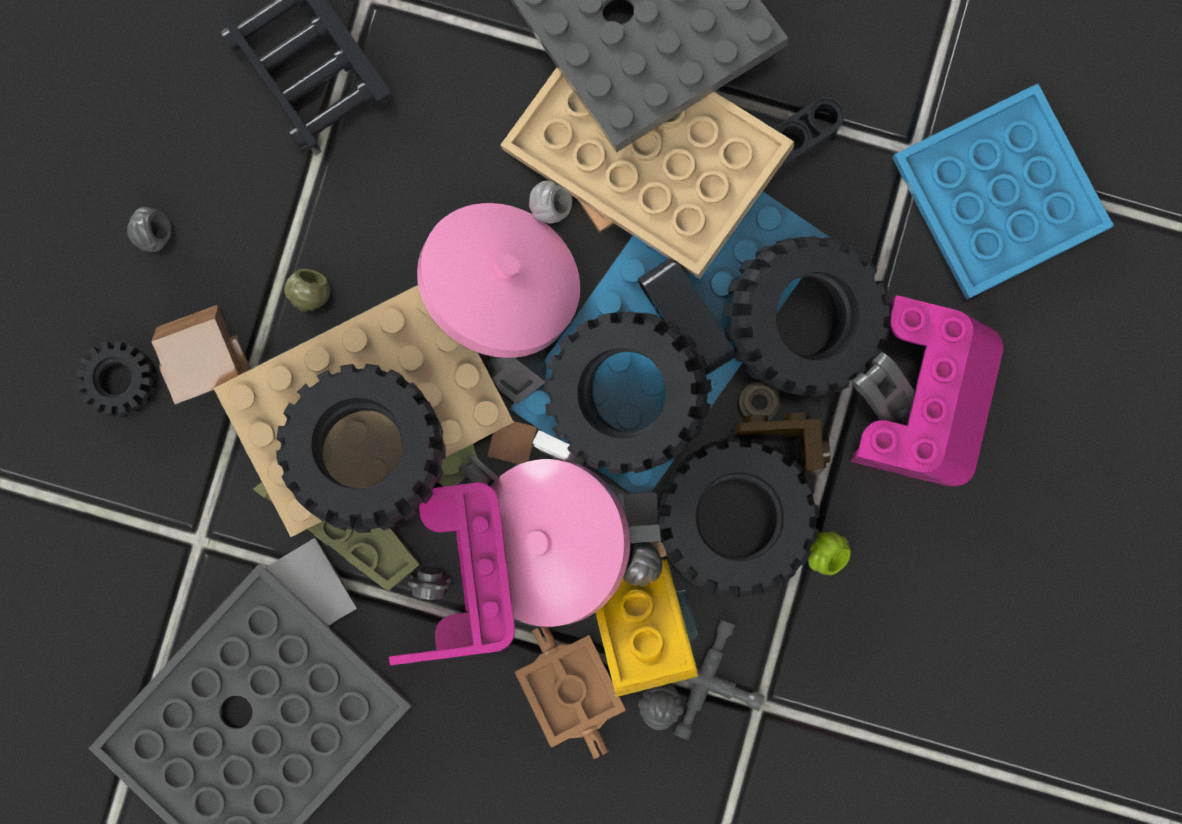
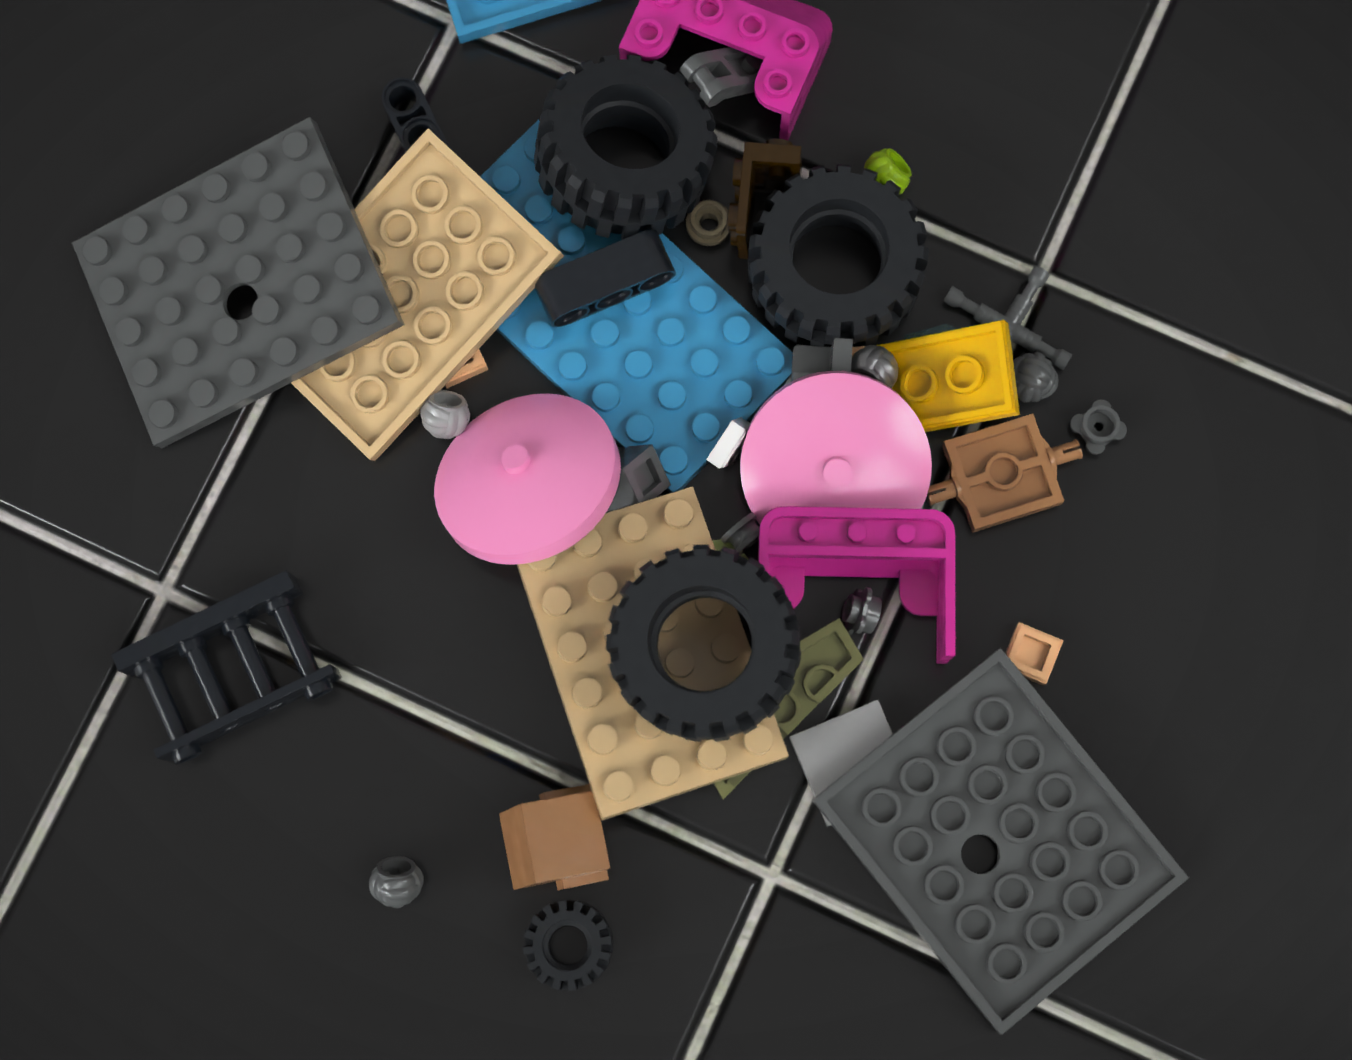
camera: 75 degrees left, 5 degrees down
(307, 289) = (500, 704): olive piece -> none
(416, 736) = (1033, 652): none -> light nougat tile
(513, 443) = (716, 496): medium nougat tile -> none
(573, 394) = (746, 332): black tyre -> none
(613, 770) = (1099, 413): none -> dark grey plate

